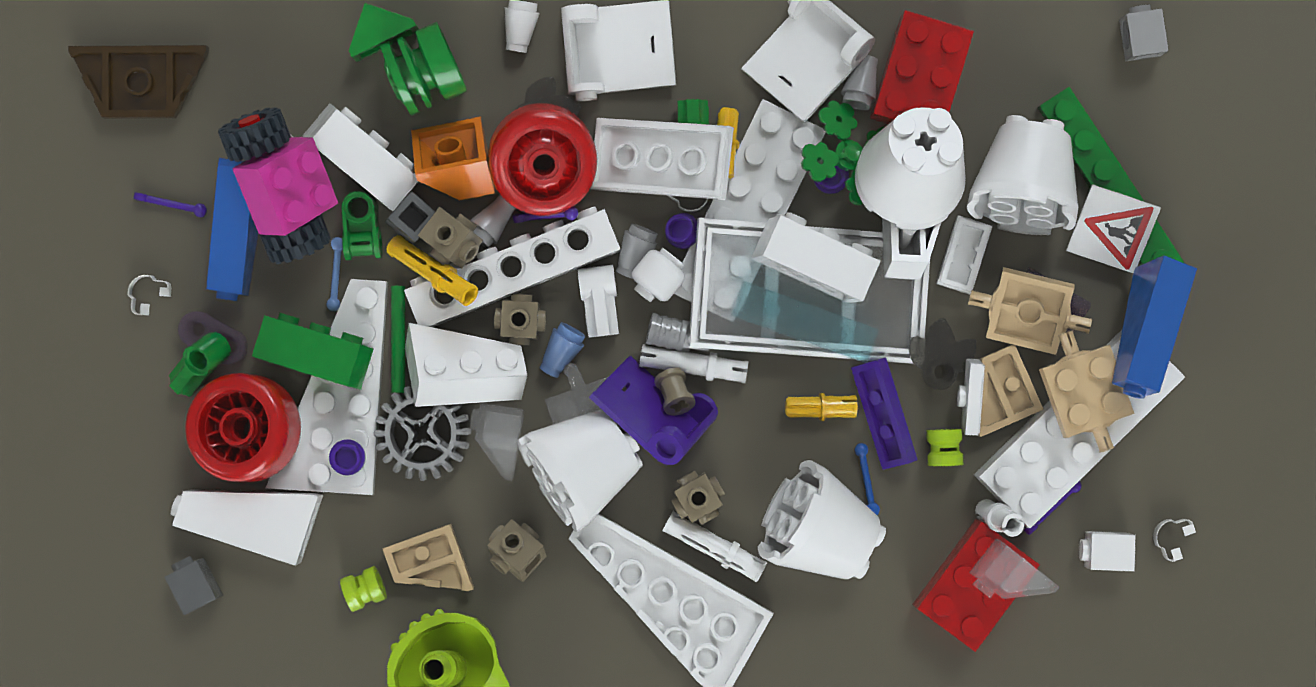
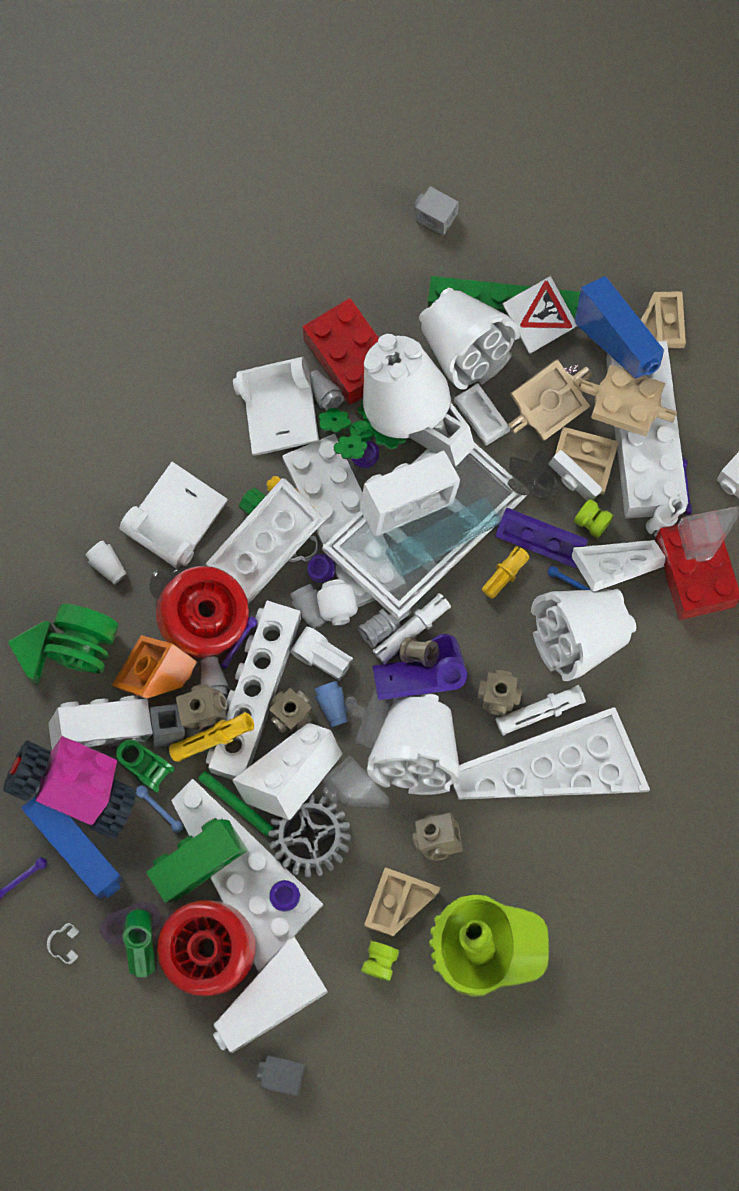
camera: 55 degrees left, 15 degrees down
(914, 506) = (618, 562): none -> white wing
(1209, 353) = (666, 318): none -> tan wing

